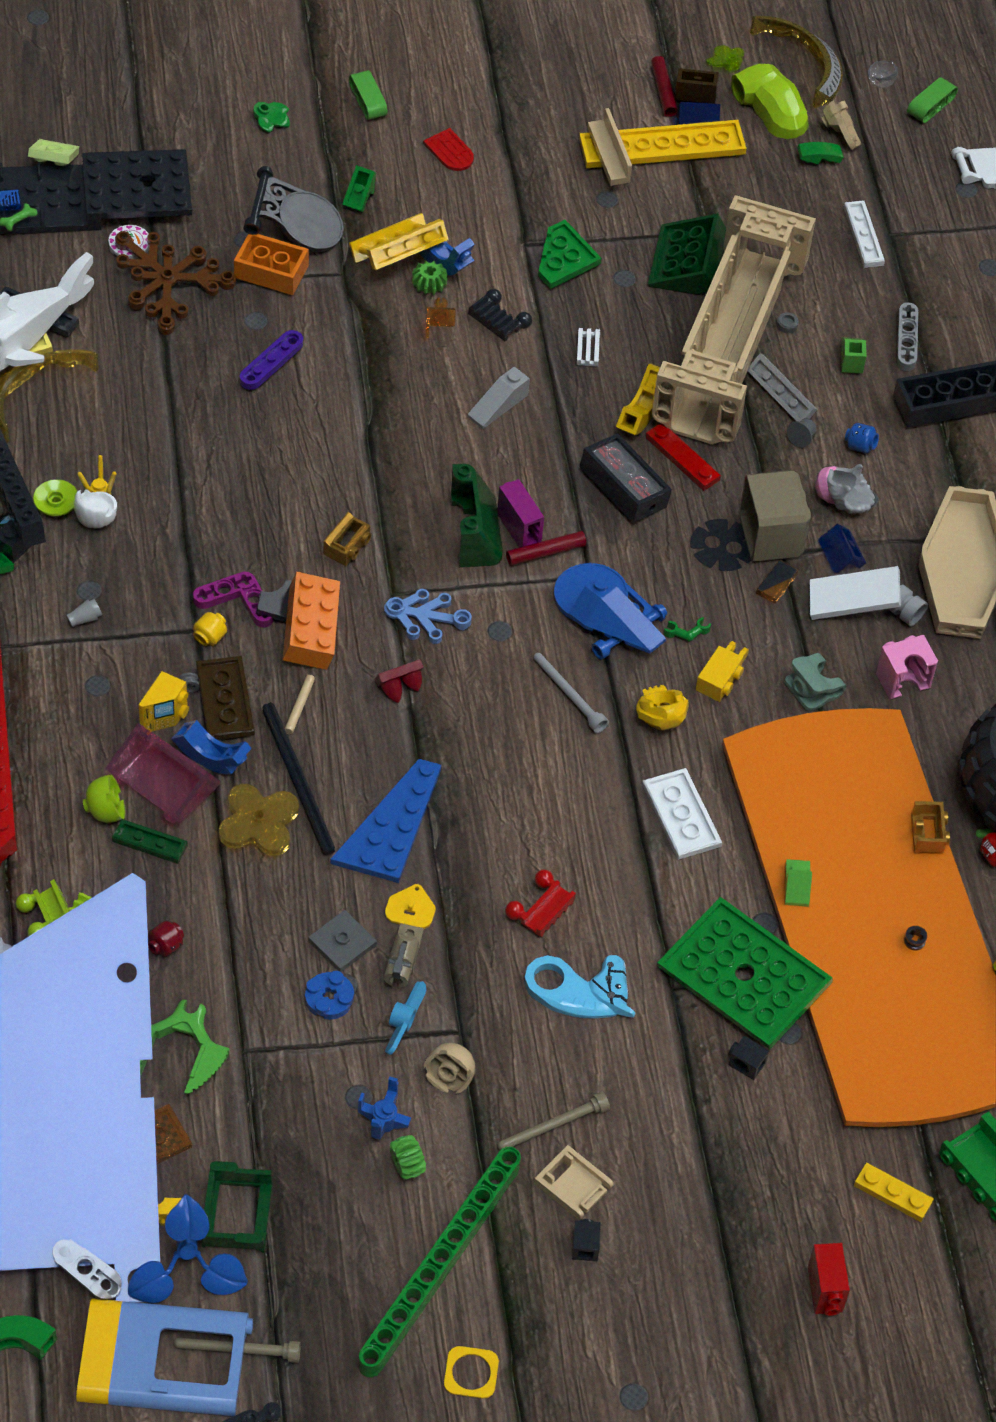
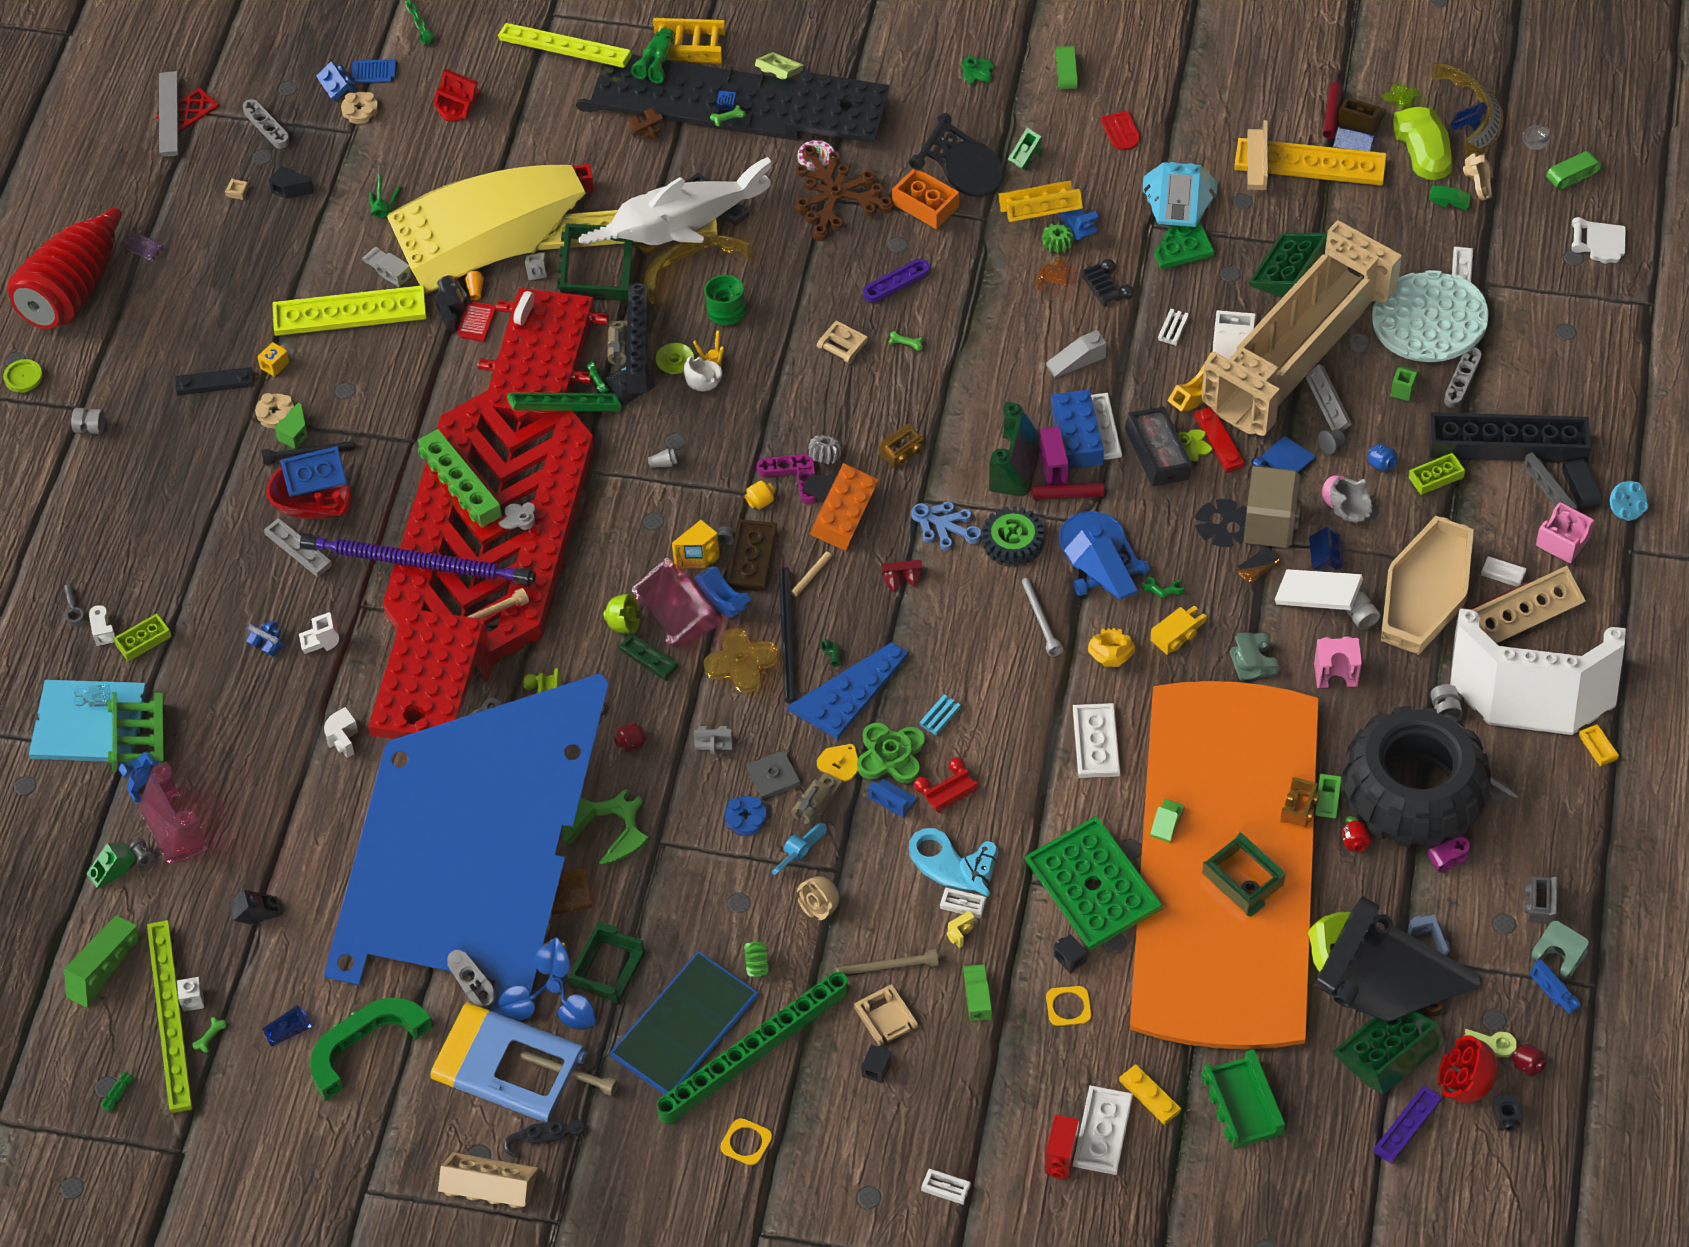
camera: 25 degrees right, 0 degrees up
(91, 420) = (725, 300): none -> green wheel
(238, 433) = (845, 337): none -> tan plate
(261, 917) = (713, 739): none -> light grey hips
(264, 561) = (824, 449): none -> light grey gear
(318, 423) = (896, 338): none -> bright green piece
(351, 1256) = (684, 1024): none -> clear green door
(356, 784) = (832, 650): none -> dark green arm
(384, 1112) = (750, 918): blue piece -> none
(465, 883) = (890, 753): none -> bright green plant
(484, 933) = (891, 797): none -> blue panel
(493, 602) = (1015, 545): none -> wheel
(508, 812) = (948, 703): none -> medium azure tile
(525, 460) = (1078, 427): none -> blue brick
(540, 203) = (1179, 193): none -> medium azure wedge
(557, 469) = (1106, 426): none -> white tile
(608, 1035) = (962, 906): none -> white tile
(618, 1060) = (959, 926): none -> light yellow bracket
(657, 341) = (1230, 331): none -> white slope
(663, 468) = (1194, 444): none -> lime plate
(665, 1129) = (977, 993): none -> bright green piece
(722, 1367) = (962, 1194): none -> white tile
(759, 458) = (1285, 455): none -> blue flag
(760, 1136) = (1078, 990): none -> yellow piece
(809, 64) = (1469, 116): none -> clear blue tile
(852, 280) = (1431, 317): none -> light aqua tile
(859, 1229) = (1103, 1130): none -> white tile
(895, 939) = (1248, 903): none -> dark green piece
(923, 443) = (1436, 473): none -> lime piece
(955, 806) = (1328, 795): none -> bright green slope

